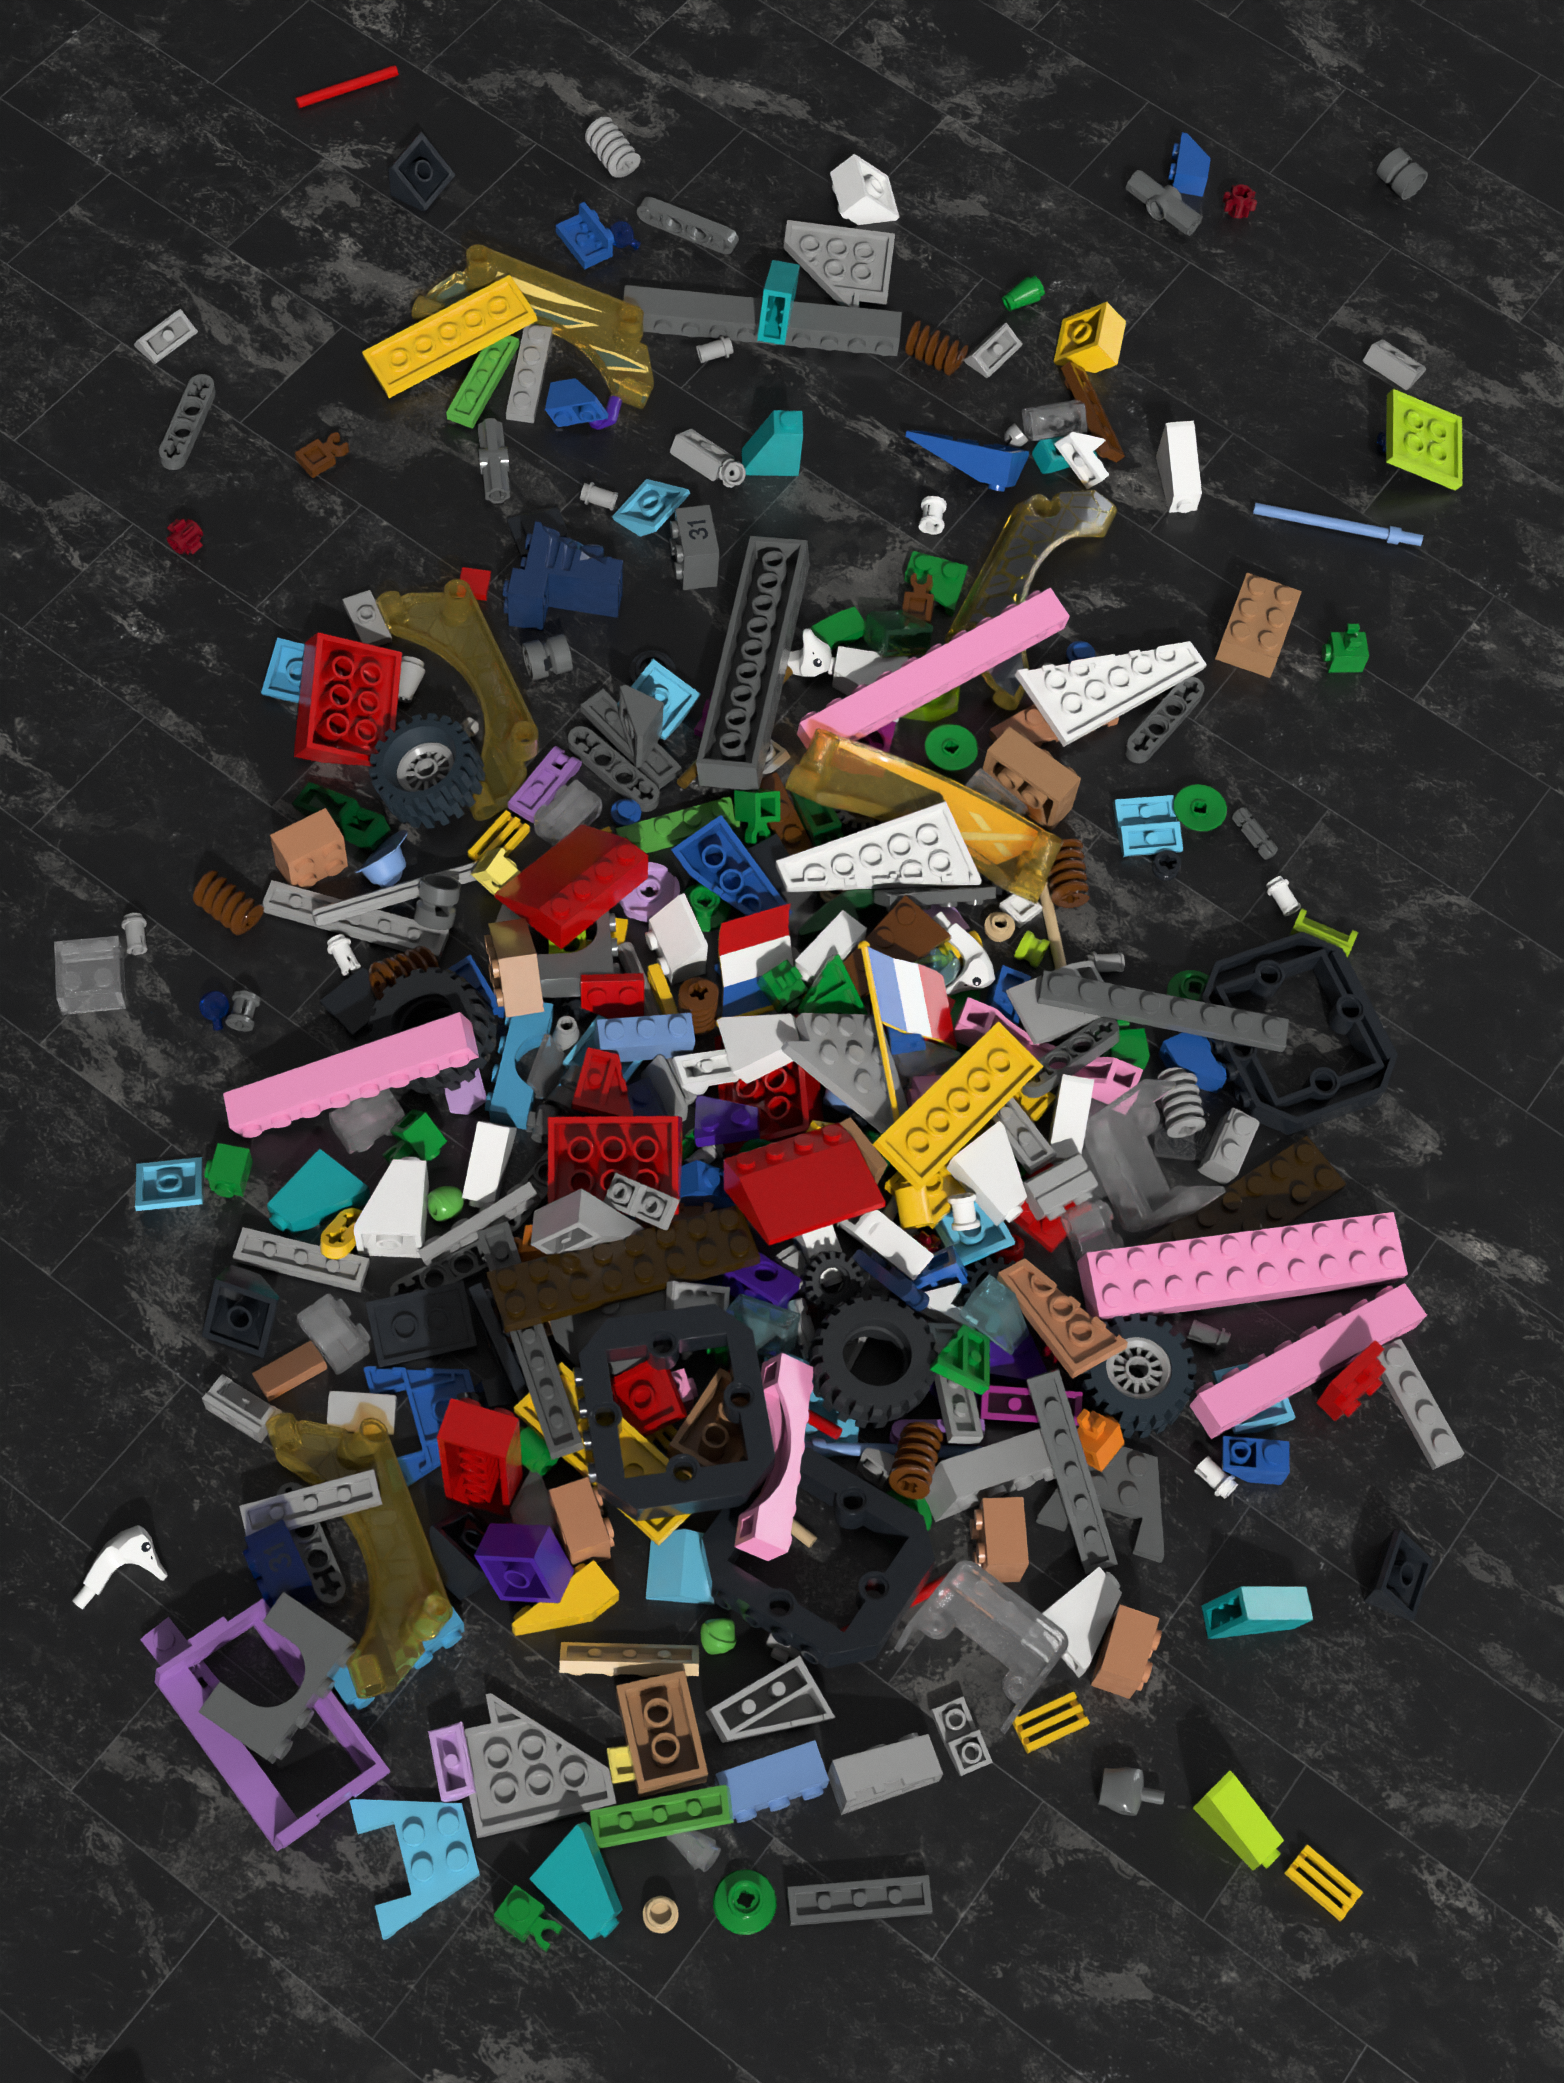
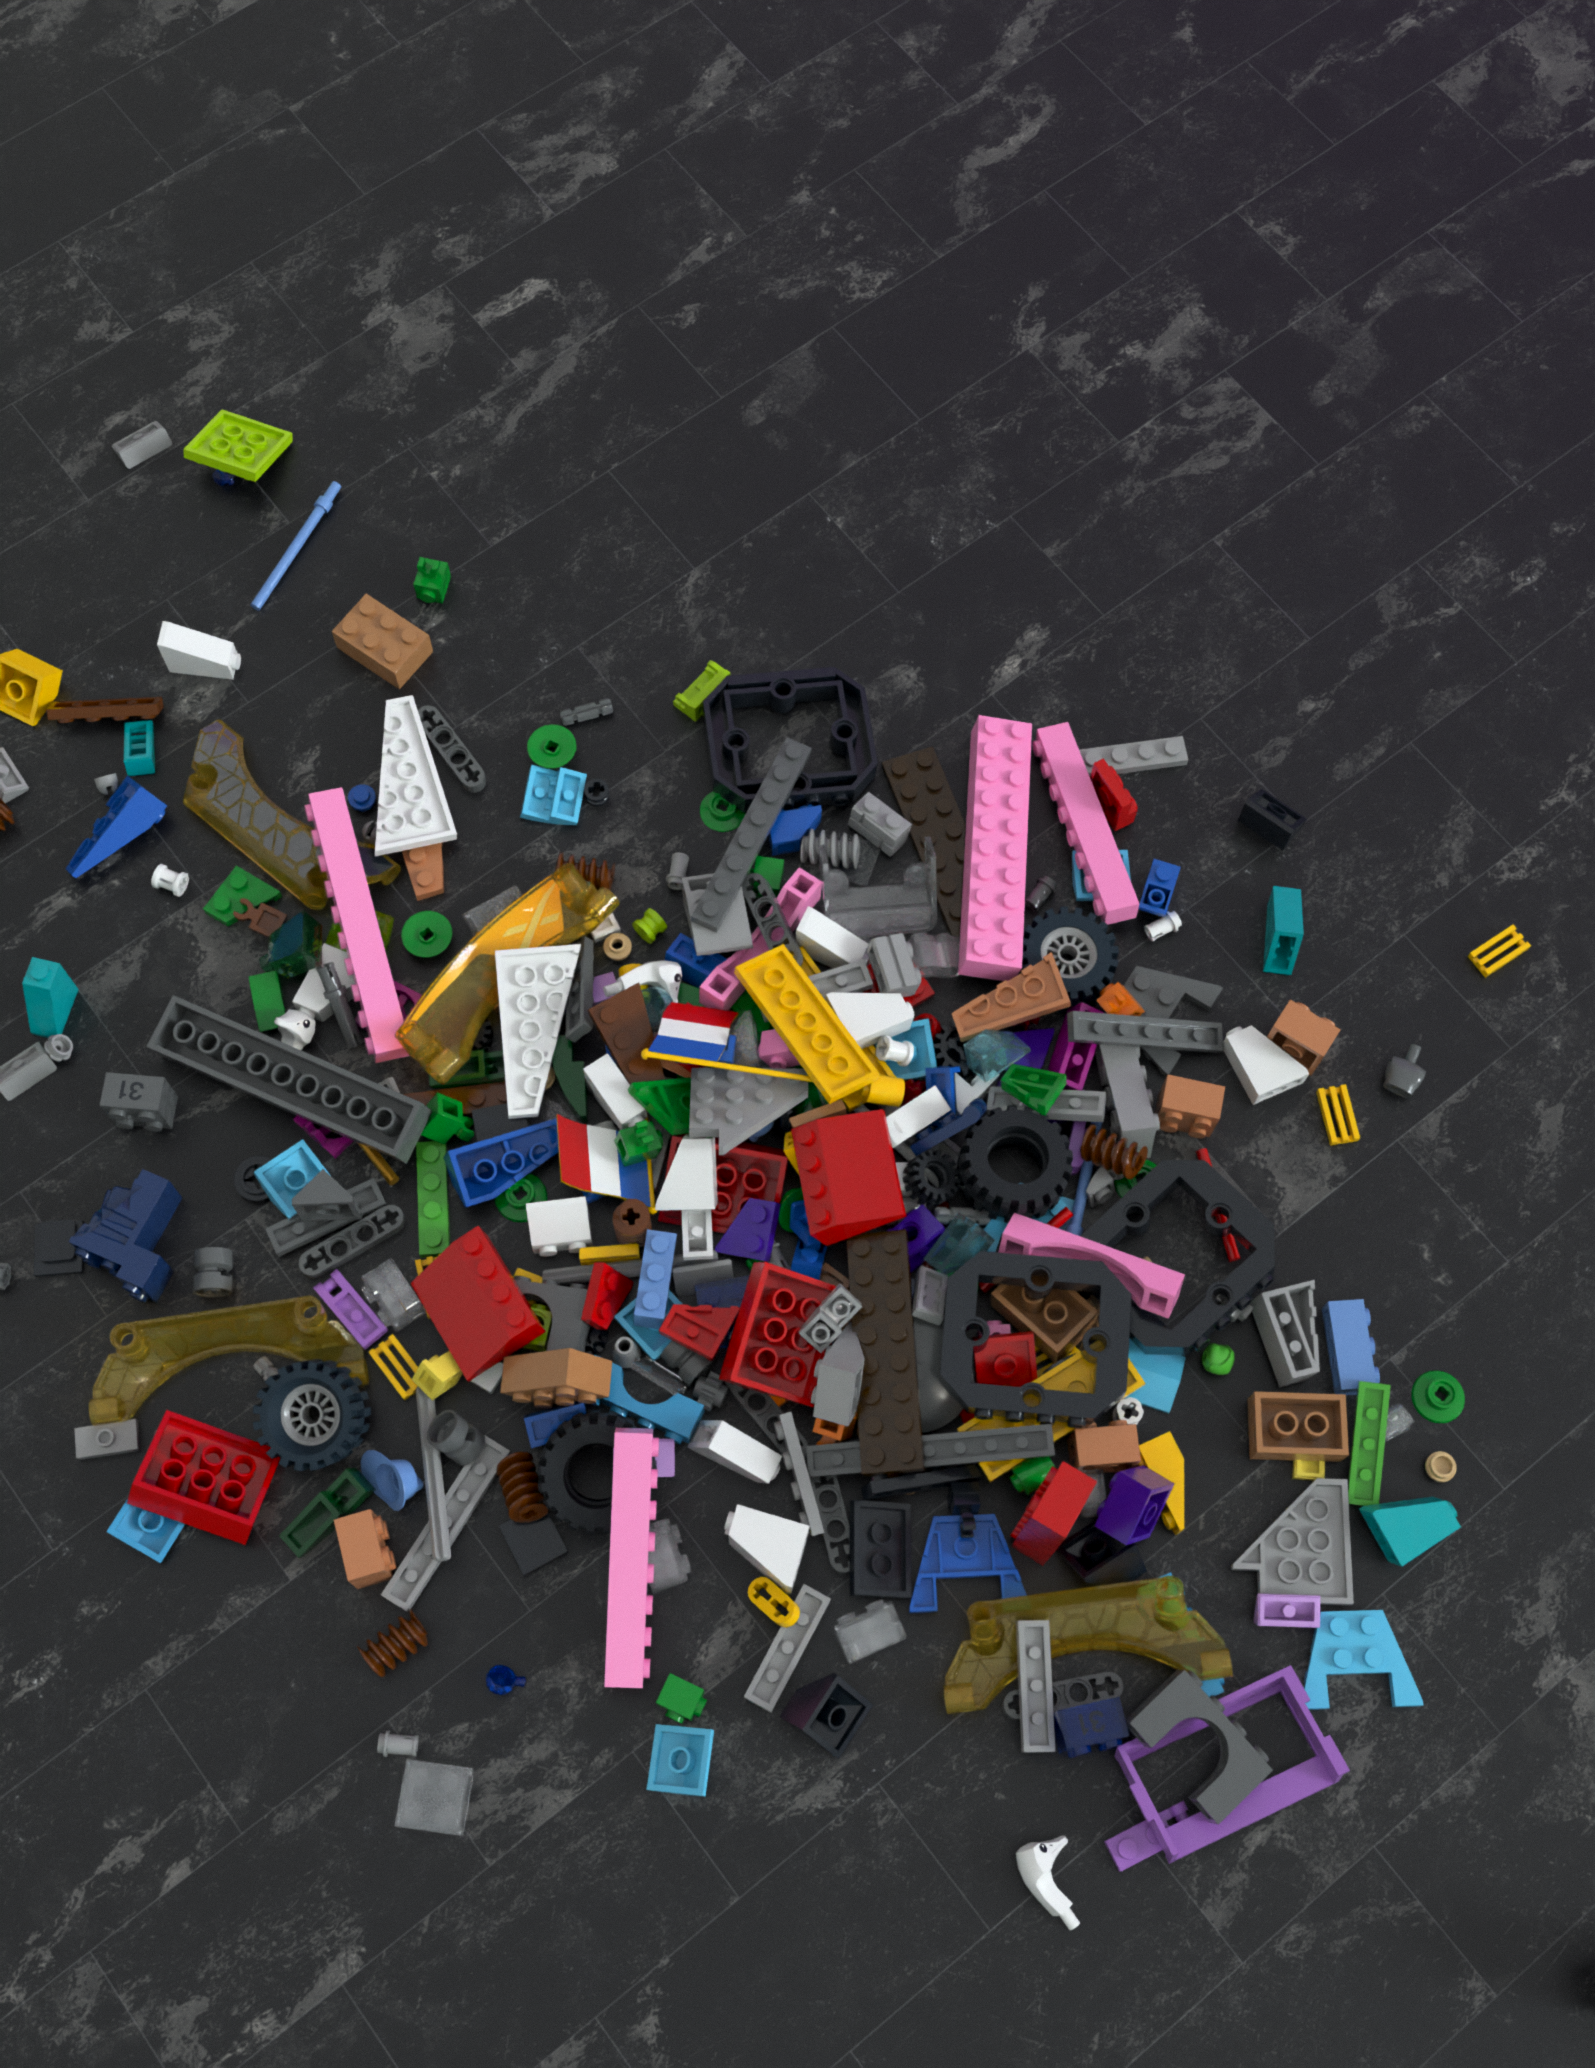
camera: 70 degrees left, 5 degrees up
(239, 1407) = (920, 1732): light grey hinge -> none
(247, 1023) = (514, 1652): dark grey bush -> none
(290, 1370) = (892, 1682): nougat slope -> none
(316, 1195) = (726, 1620): teal slope -> none
(341, 950) = (480, 1542): white pin -> none
(351, 1408) = (949, 1623): light grey slope -> none
(410, 677) = (192, 1409): light grey cone -> none
(416, 1138) = (695, 1513): green brick -> none
(445, 1203) = (766, 1499): bright green piece -> none
(478, 581) = (99, 1324): red tile -> none
(523, 1916) = (1428, 1579): green brick -> none
(598, 496) = (40, 1180): light grey pin -> none
(622, 1658) = (1224, 1439): tan plate -> none
(625, 812) = (404, 1241): blue plate -> none
(638, 1555) = (1132, 1404): none -> white bush
(650, 507) = (71, 1133): medium azure slope -> none
(662, 882) = (510, 1231): lavender plate -> none
(856, 676) = (336, 994): none -> dark grey pin
(859, 1900) = (1457, 1304): dark grey plate -> none
(884, 1772) = (1360, 1255): light grey wedge -> none
(960, 1736) = (1336, 1187): light grey slope -> none
(996, 1622) = (1264, 1120): clear windscreen -> none
(1032, 777) = (484, 873): medium nougat brick -> none
(1052, 928) = (643, 905): tan bar -> none
(1054, 420) = (105, 742): clear brick -> none
(1079, 454) = (159, 731): white slope -> none
(1240, 1822) = (1446, 996): lime slope -> none
(1283, 896) = (654, 708): white pin -> none

